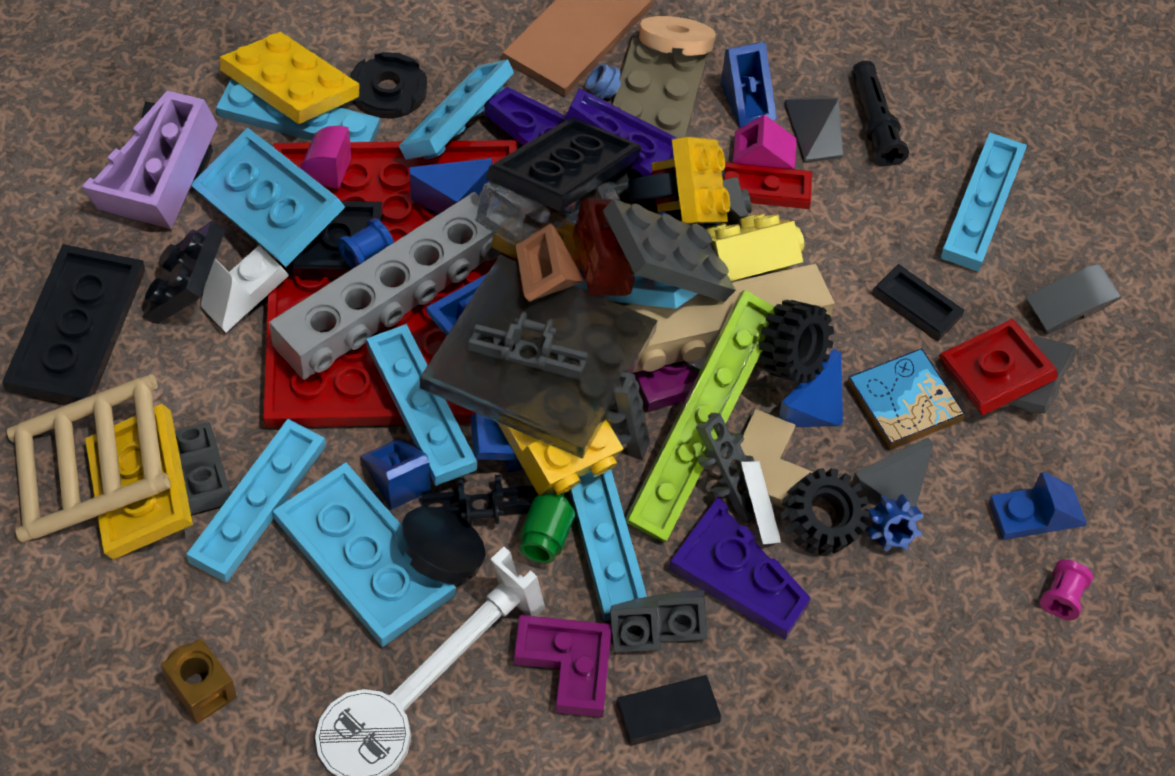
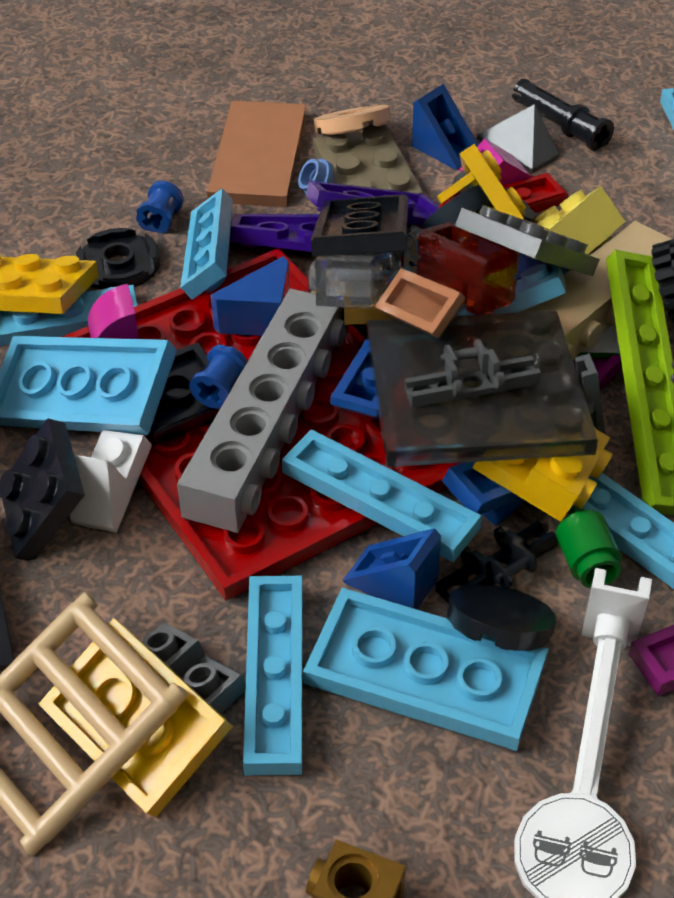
camera: 25 degrees left, 10 degrees down
(452, 50) = (158, 205): none -> blue bush

